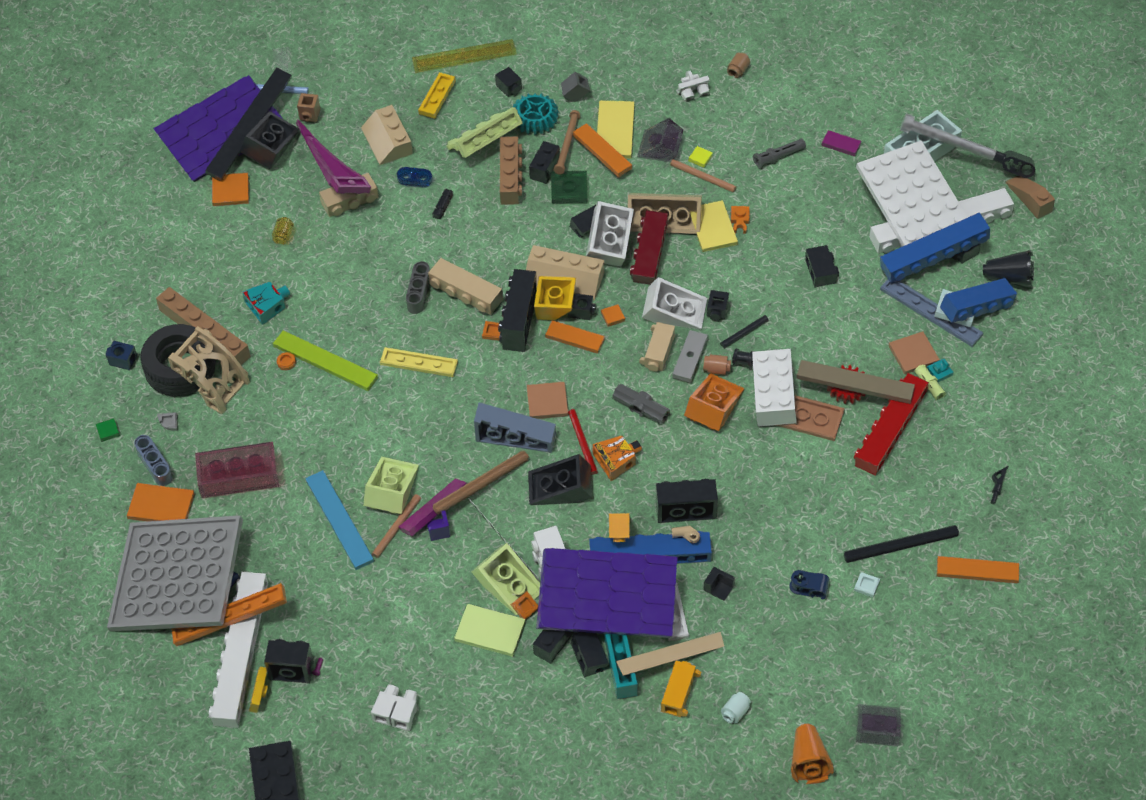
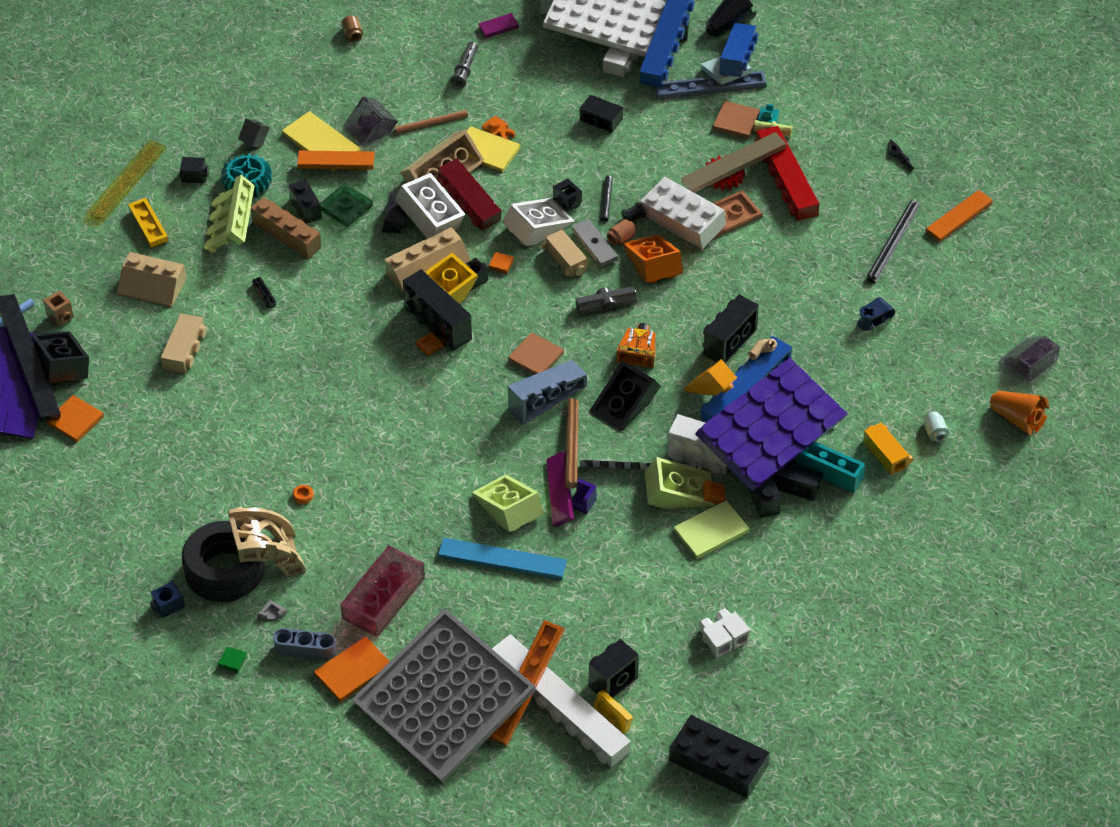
camera: 50 degrees left, 5 degrees down
(186, 313) = (177, 527): medium nougat brick -> none
(265, 300) = (227, 467): teal torso -> none
(282, 230) = (166, 409): clear yellow brick -> none
(325, 360) = (332, 468): lime tile -> none
(336, 173) = (167, 330): magenta plate -> none
(395, 527) = (552, 532): nougat bar -> none
(415, 176) = (214, 291): clear blue plate -> none
(418, 287) = (333, 360): dark grey beam -> none
(418, 362) = (405, 409): light yellow tile -> none
(465, 286) = (369, 329): tan brick -> none
(559, 167) = (324, 195): medium nougat bar -> none
(575, 336) = (494, 298): orange tile -> none
(582, 440) = (590, 356): red bar -> none
(670, 653) = (854, 430): tan sticker -> none
(693, 82) = (336, 66): white hips -> none
(700, 156) = (411, 111): neon yellow tile -> none
(719, 583) = (818, 364): black panel -> none
(866, 584) = (907, 284): light aqua tile -> none

